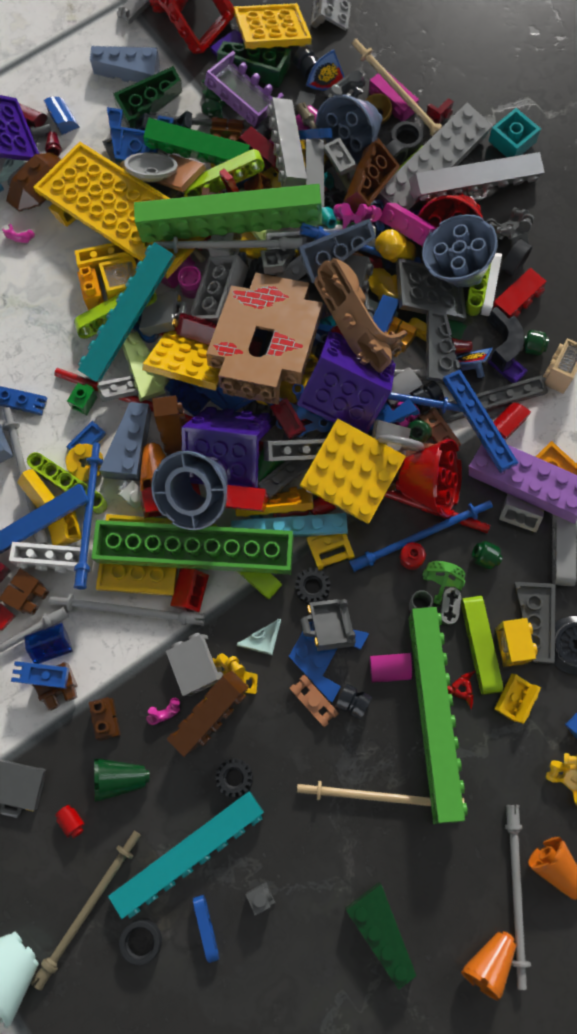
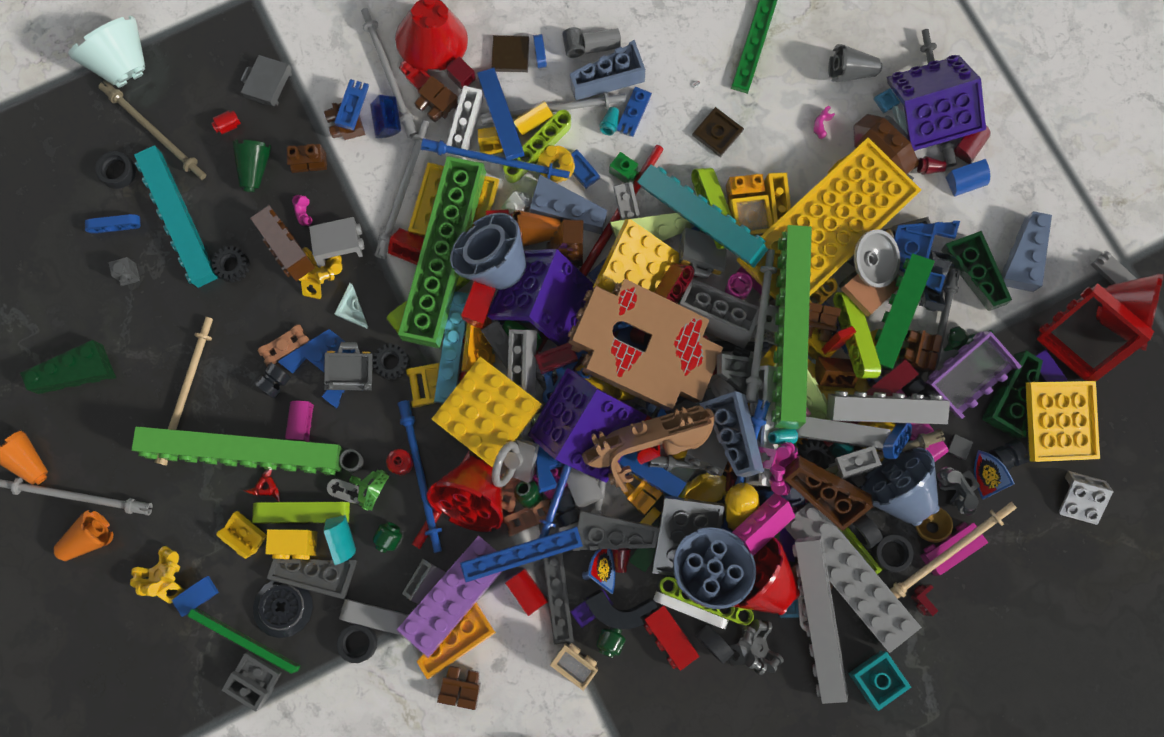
camera: 95 degrees right, 5 degrees up
(34, 419) = (610, 121): none -> teal cone
(35, 323) = (718, 132): none -> dark brown tile
(500, 597) = (339, 539): none -> teal brick

